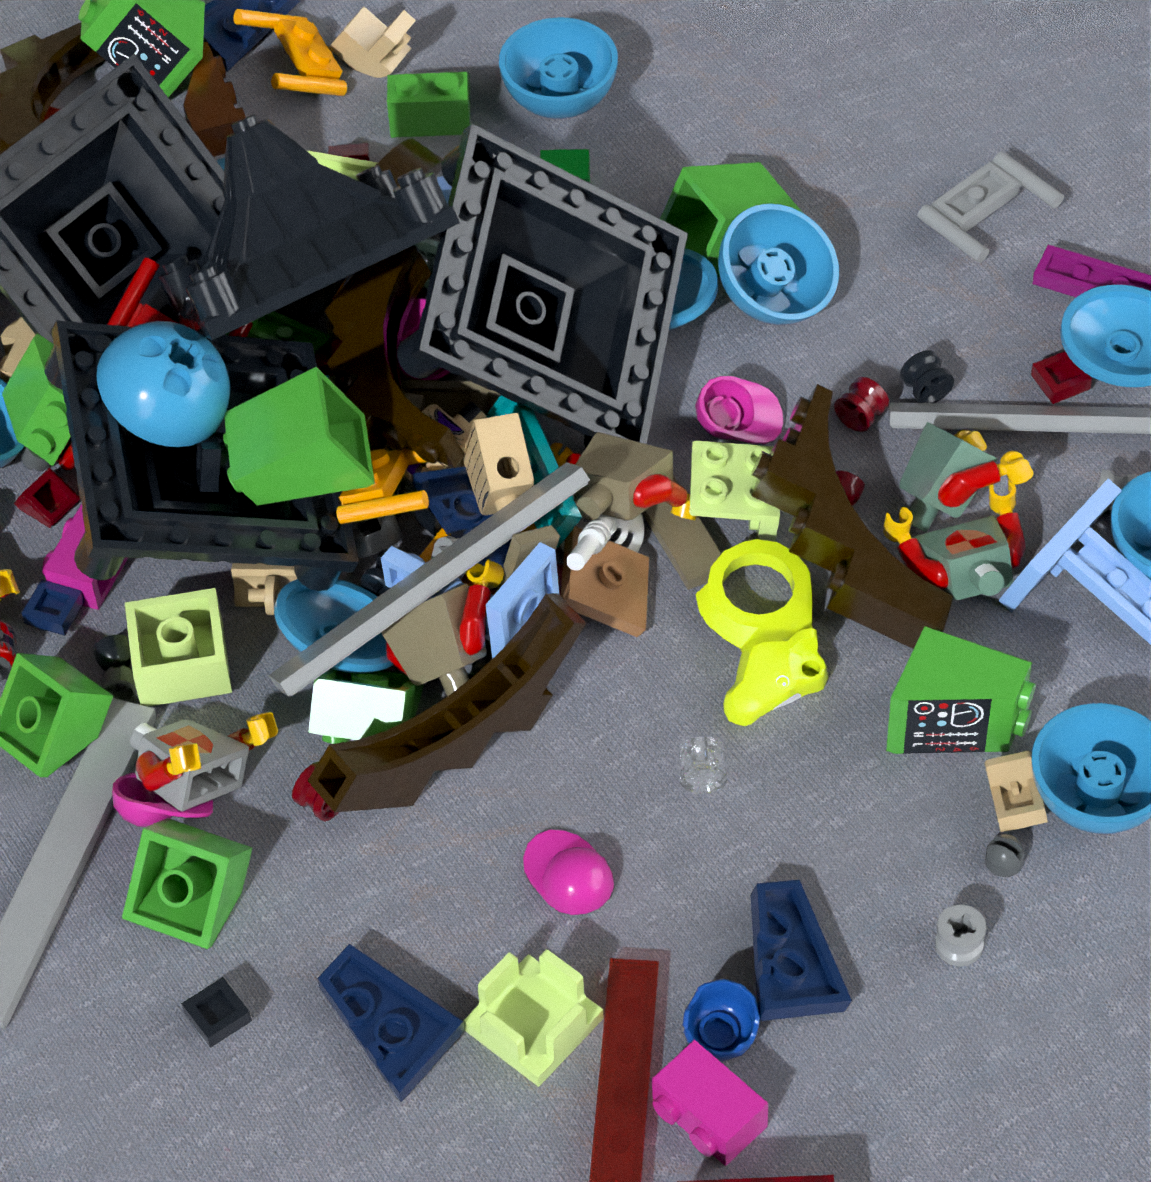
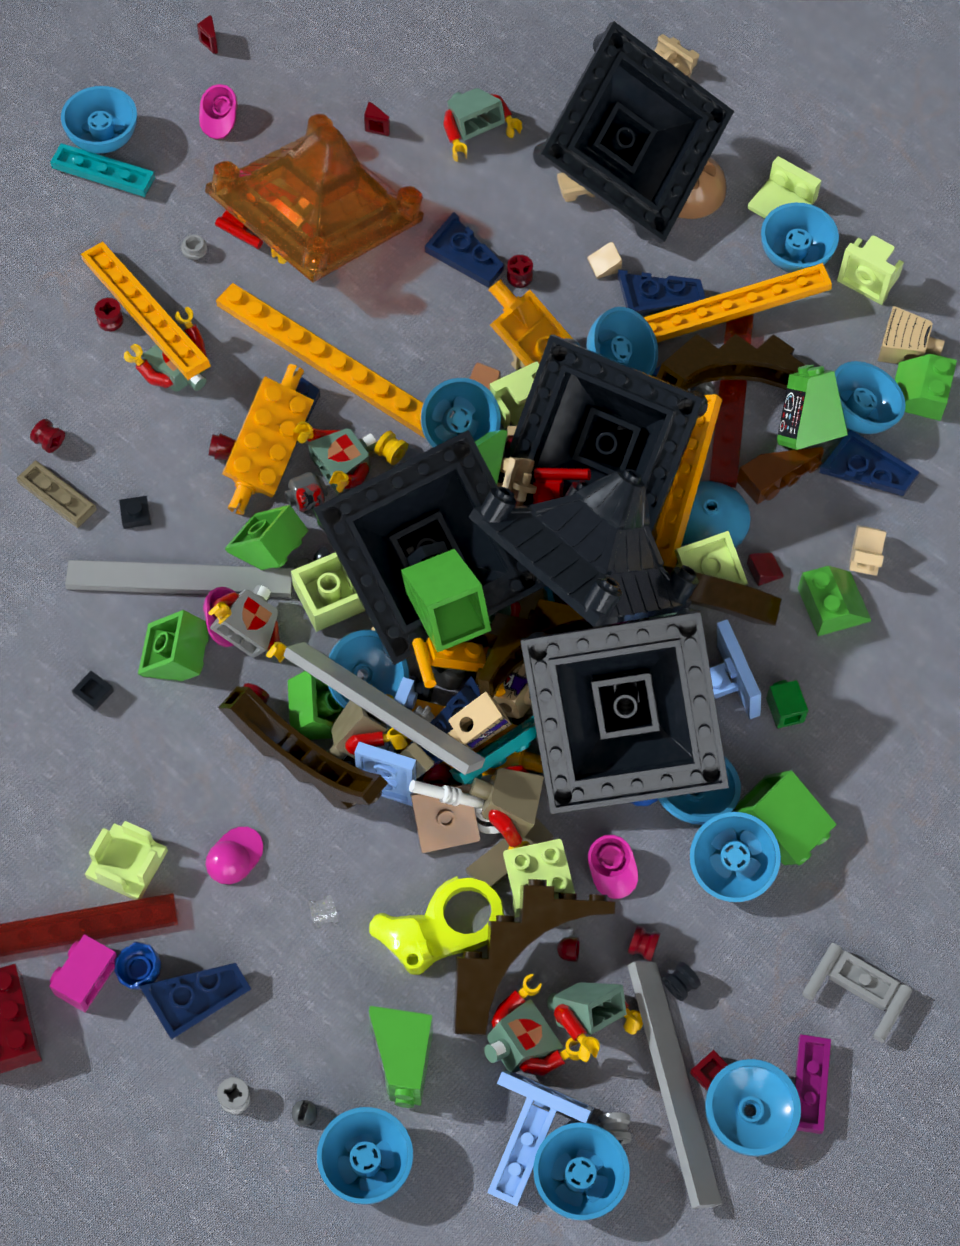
camera: 70 degrees right, 10 degrees up
(164, 383) = (434, 511): dark azure piece -> none
(305, 48) = (847, 512): light orange plate -> none
(389, 1019) = (106, 786): dark blue wing -> none
(558, 66) = (878, 656): dark azure piece -> none
(1015, 791) = (336, 1105): tan bracket -> none

